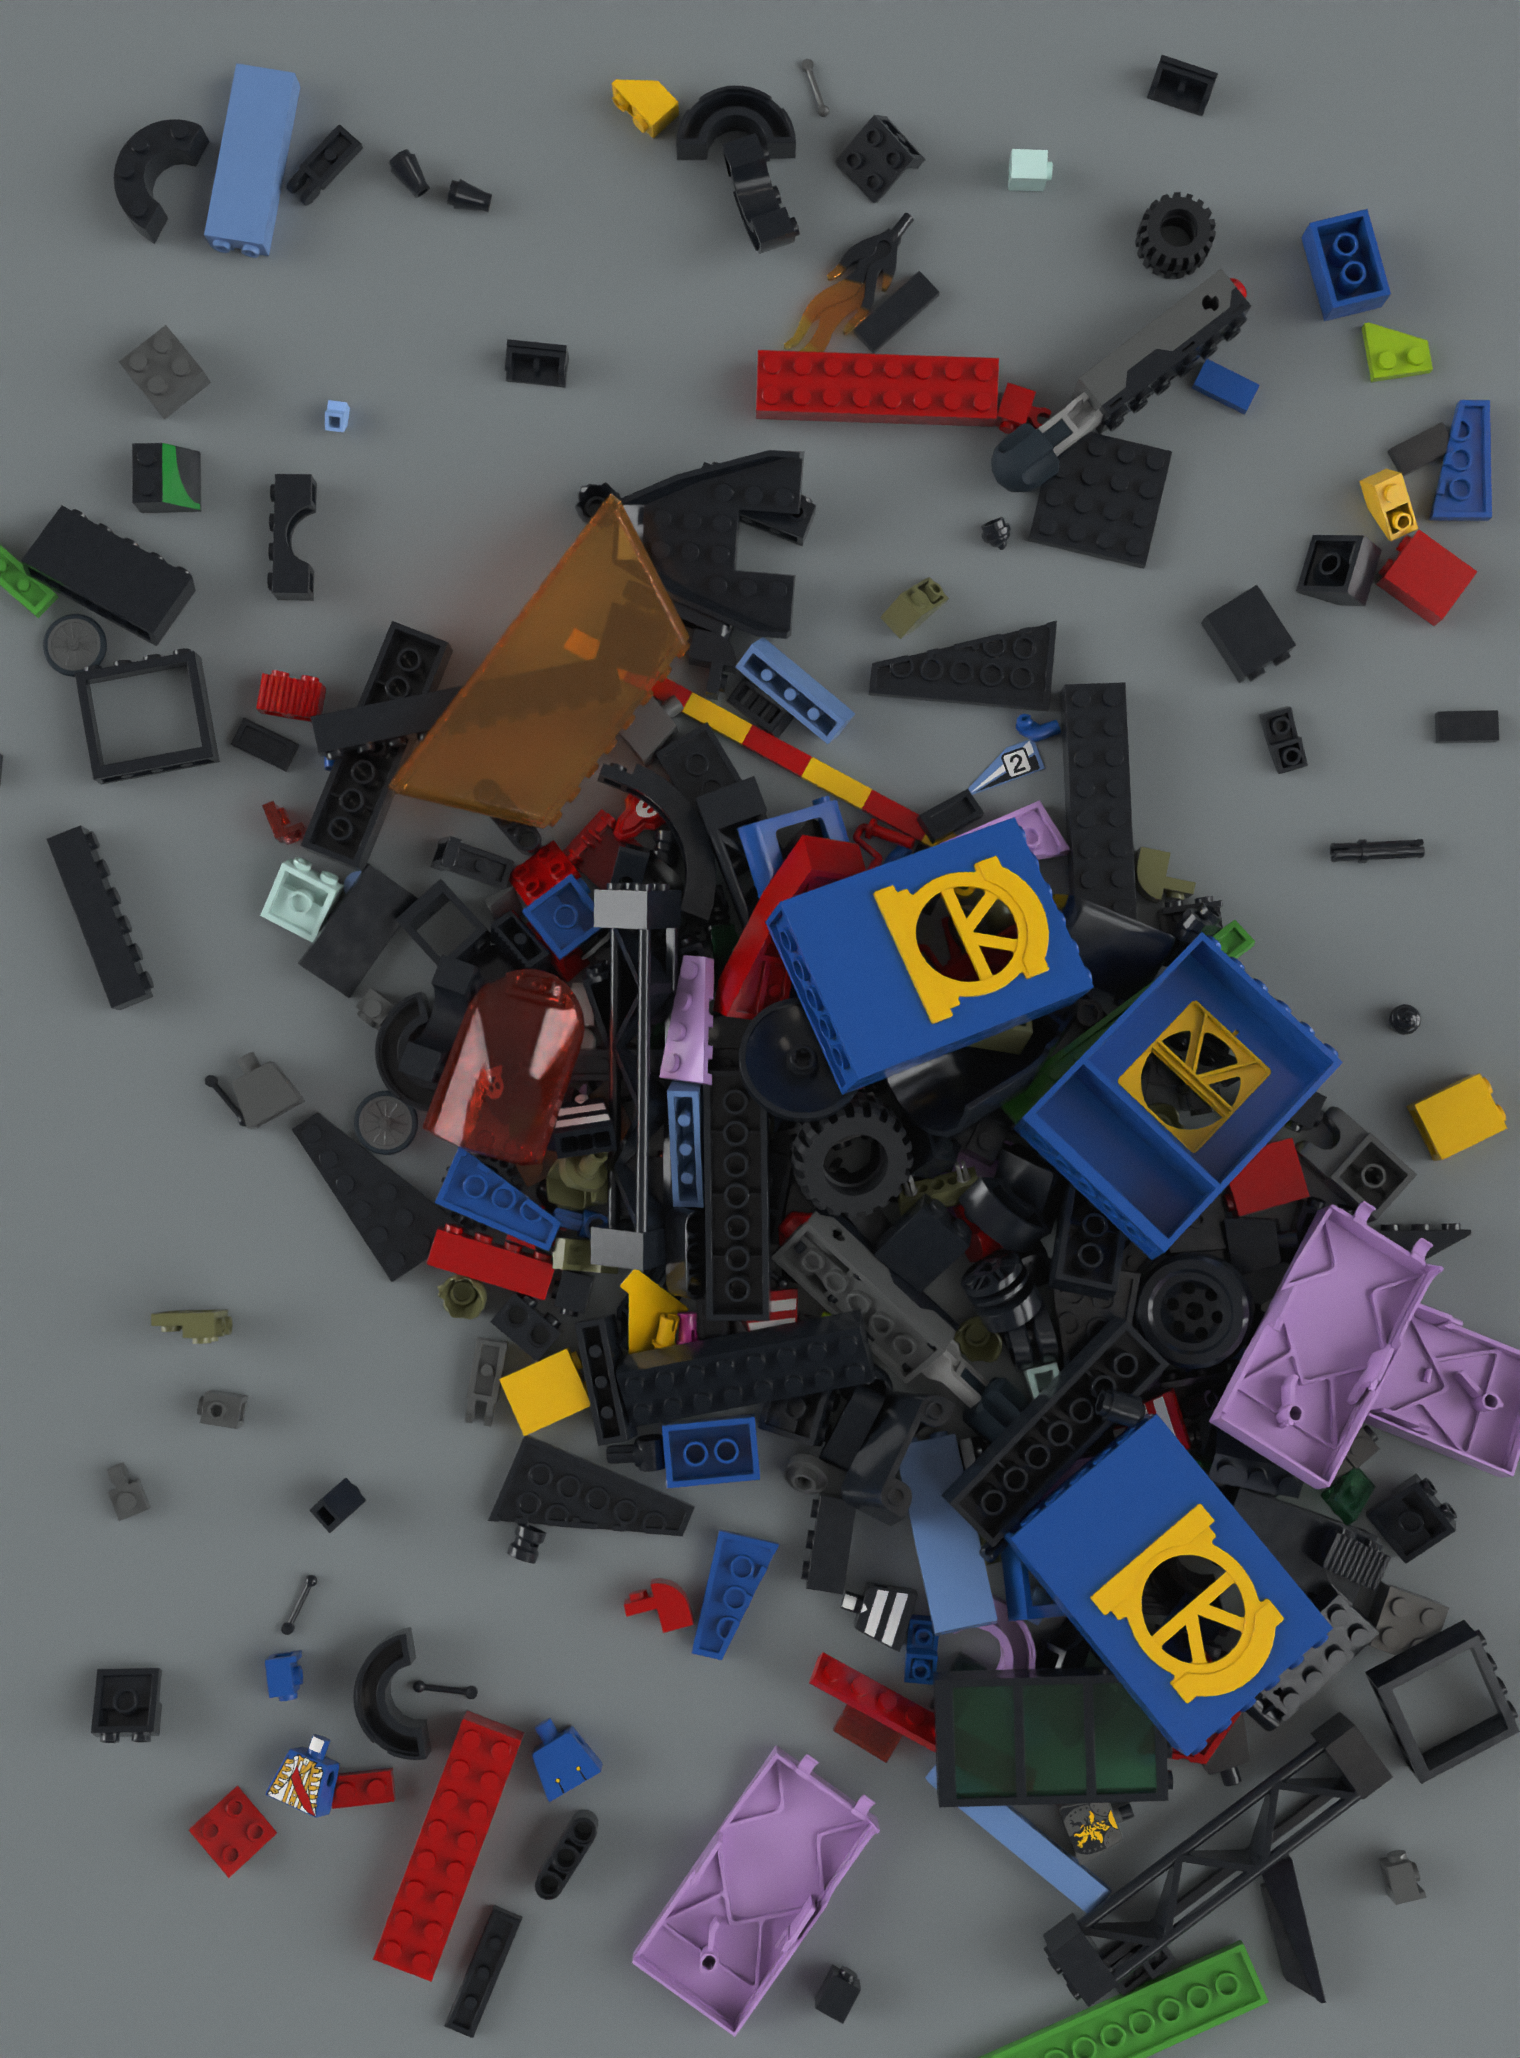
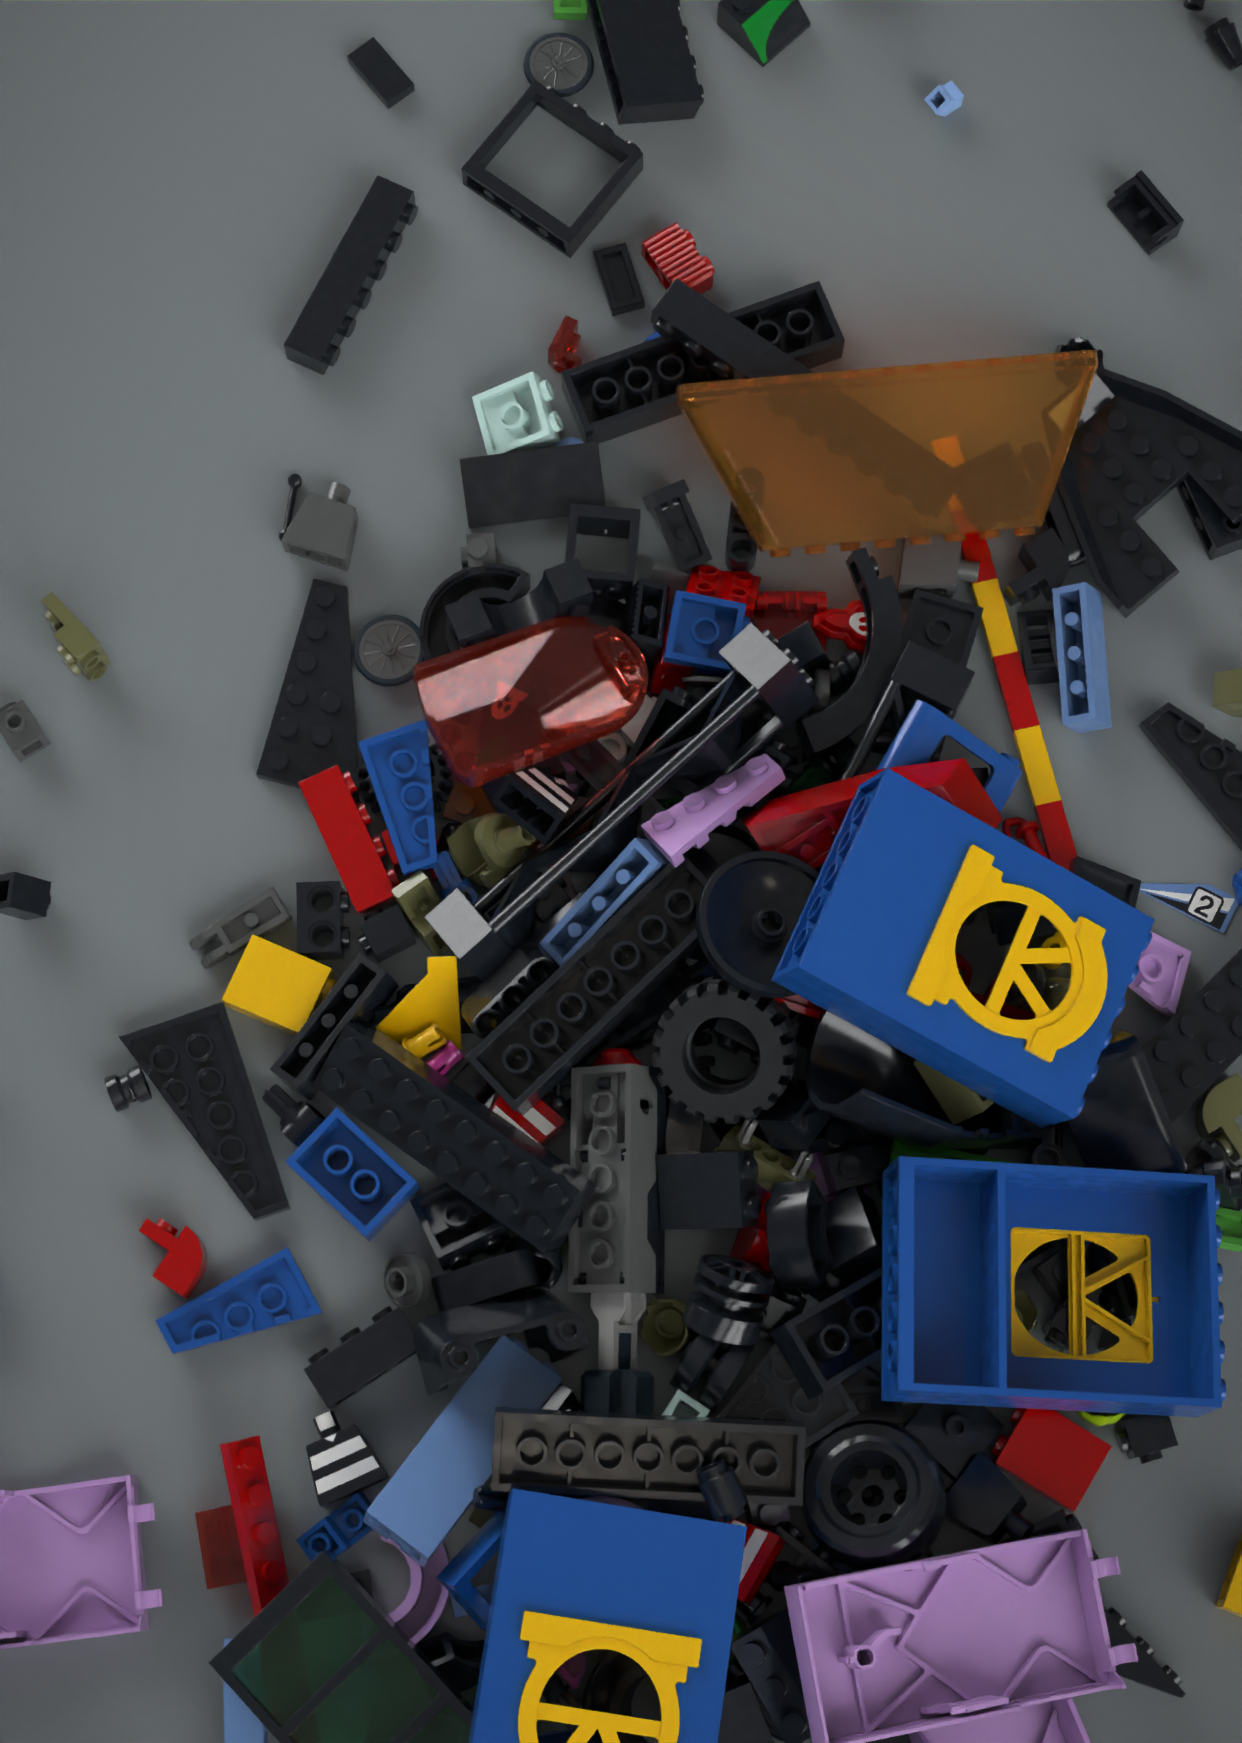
camera: 50 degrees right, 10 degrees down
(293, 501) = (841, 126): black arch -> none
(463, 1296) = (298, 843): olive hair -> none
(1350, 1158) = (1144, 1520): dark grey brick -> none

